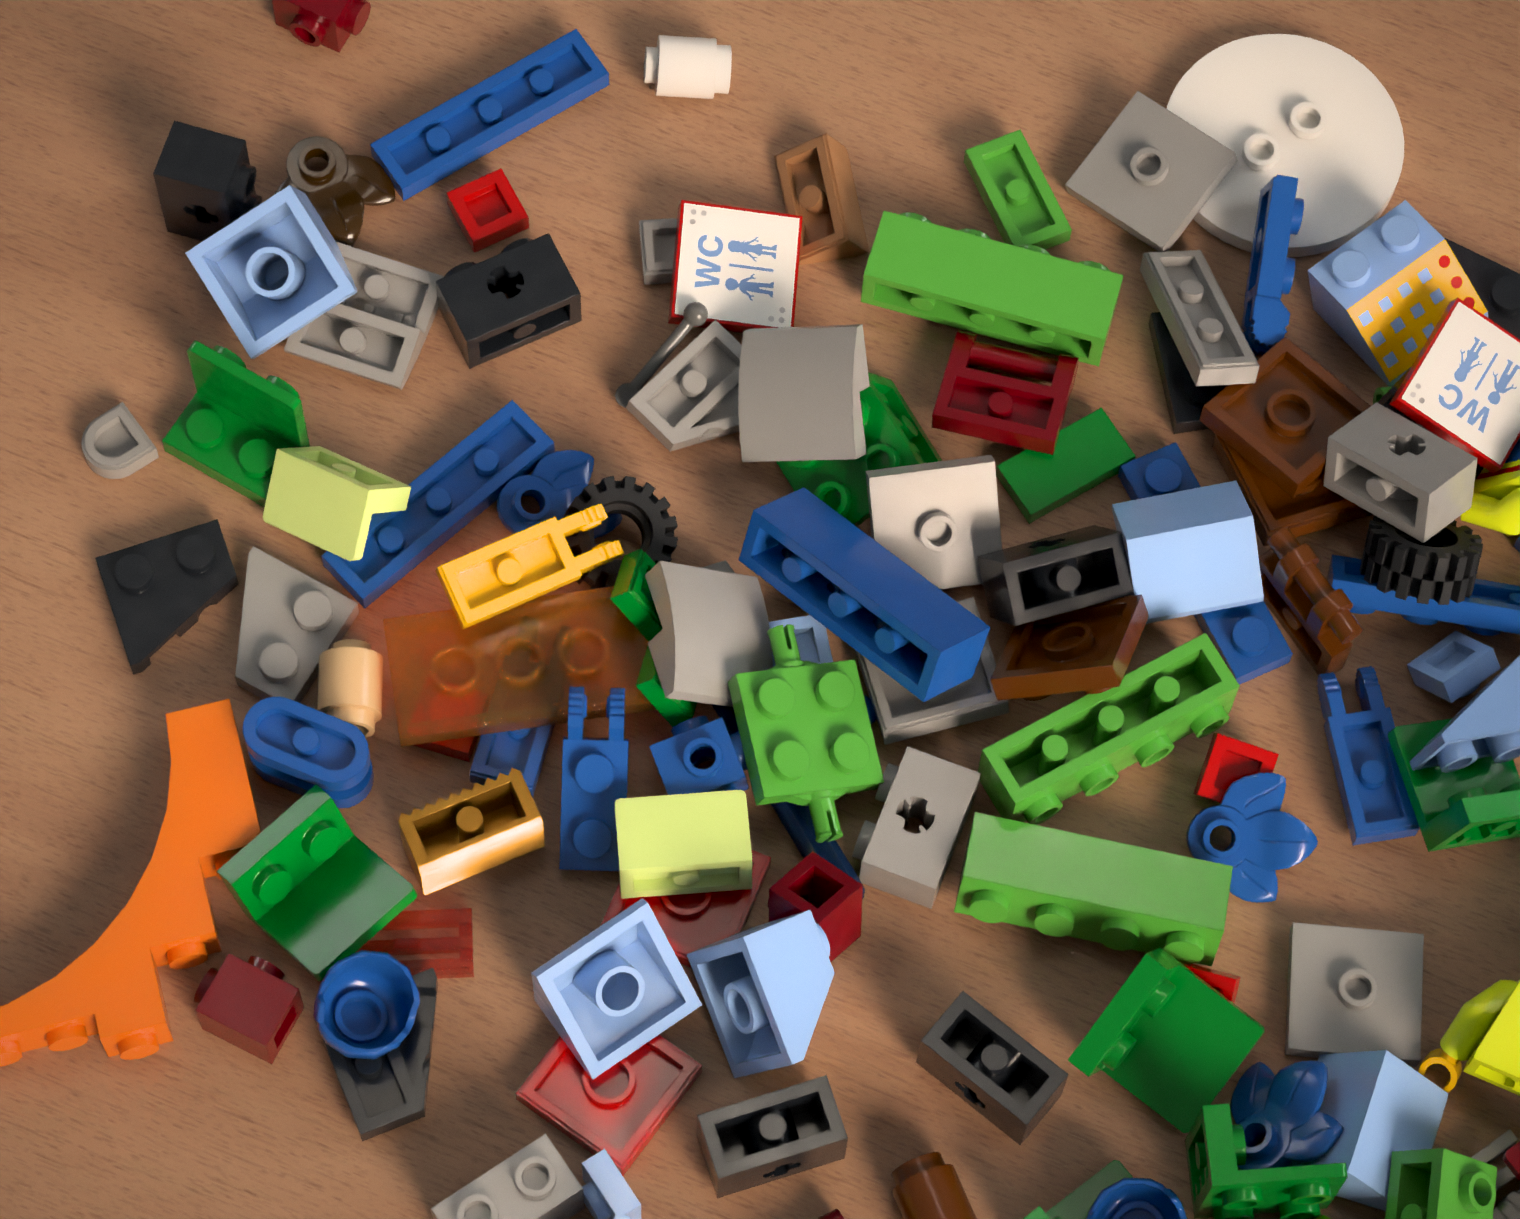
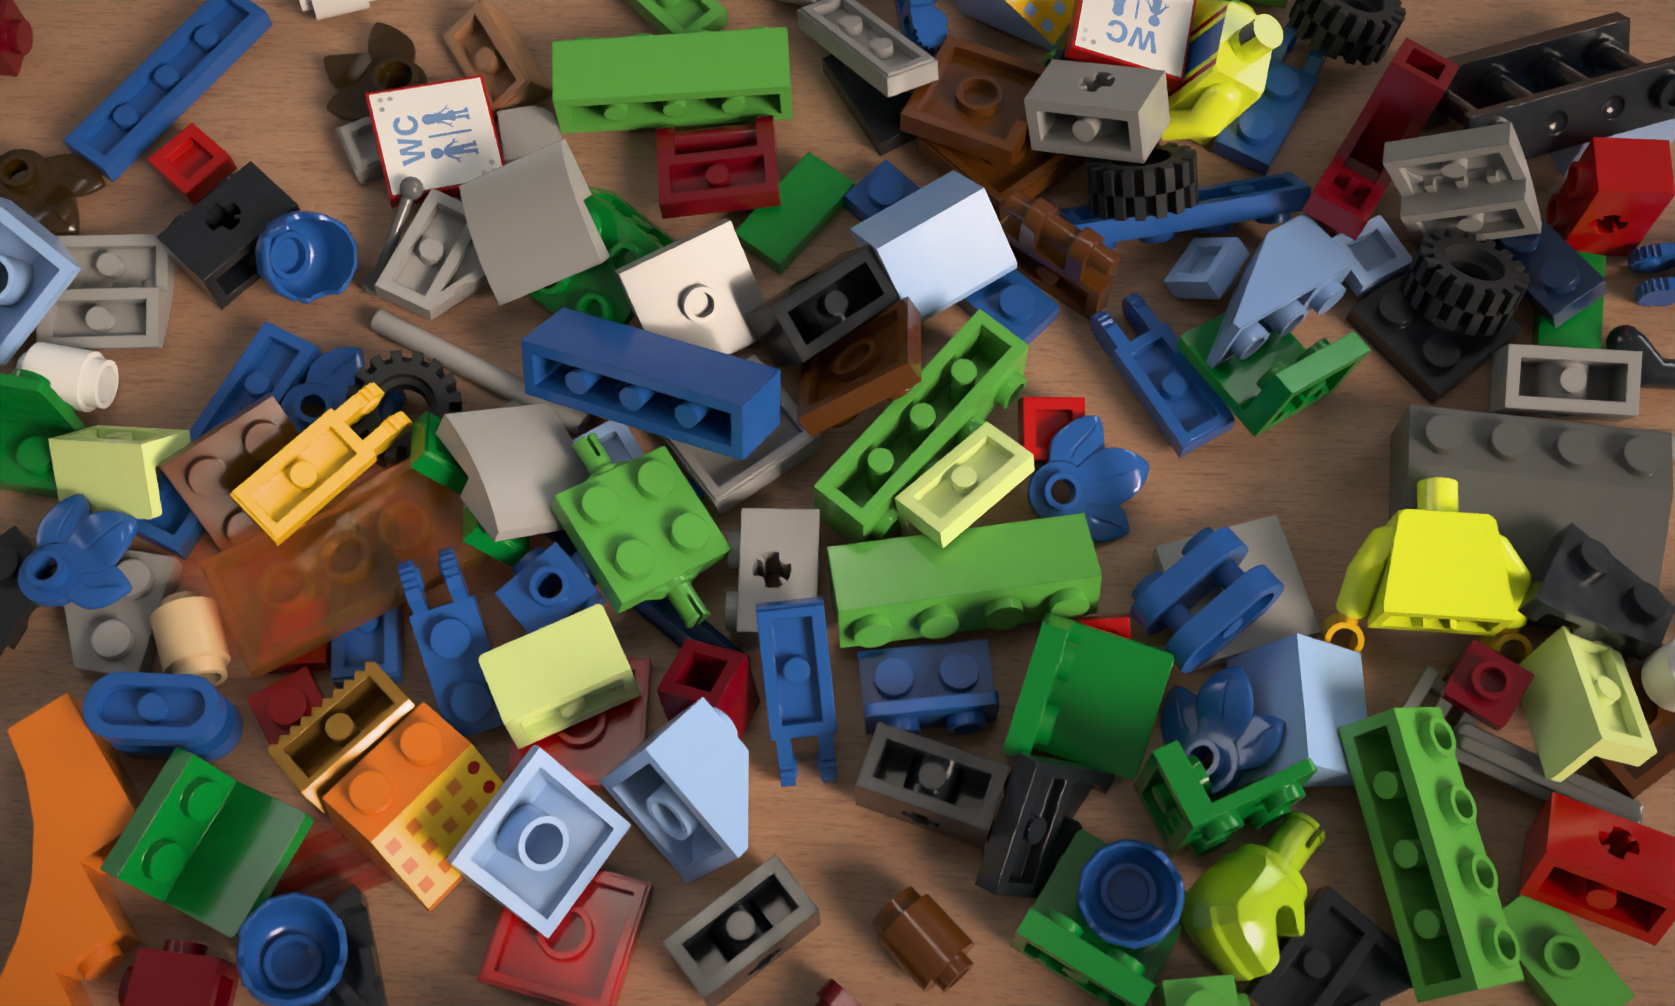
camera: 15 degrees left, 0 degrees up
(280, 568) = (85, 553): none -> blue plate
(321, 389) = (75, 374): none -> white brick
(419, 781) = (285, 702): none -> red plate
(437, 531) = (222, 460): none -> reddish brown plate
(513, 914) = (414, 803): none -> orange slope
(572, 348) = (306, 256): none -> blue hair
(692, 510) = (470, 366): none -> light grey bar
(694, 173) = (384, 67): none -> dark brown plate
(827, 293) = (526, 131): none -> light grey tile
(902, 928) = (798, 681): none -> blue hinge
(1025, 978) = (929, 687): none -> blue bracket
(1077, 1136) = (1035, 823): none -> black wing
(1126, 798) = (963, 485): none -> yellowish green panel
(1283, 973) = (1207, 561): none -> blue brick

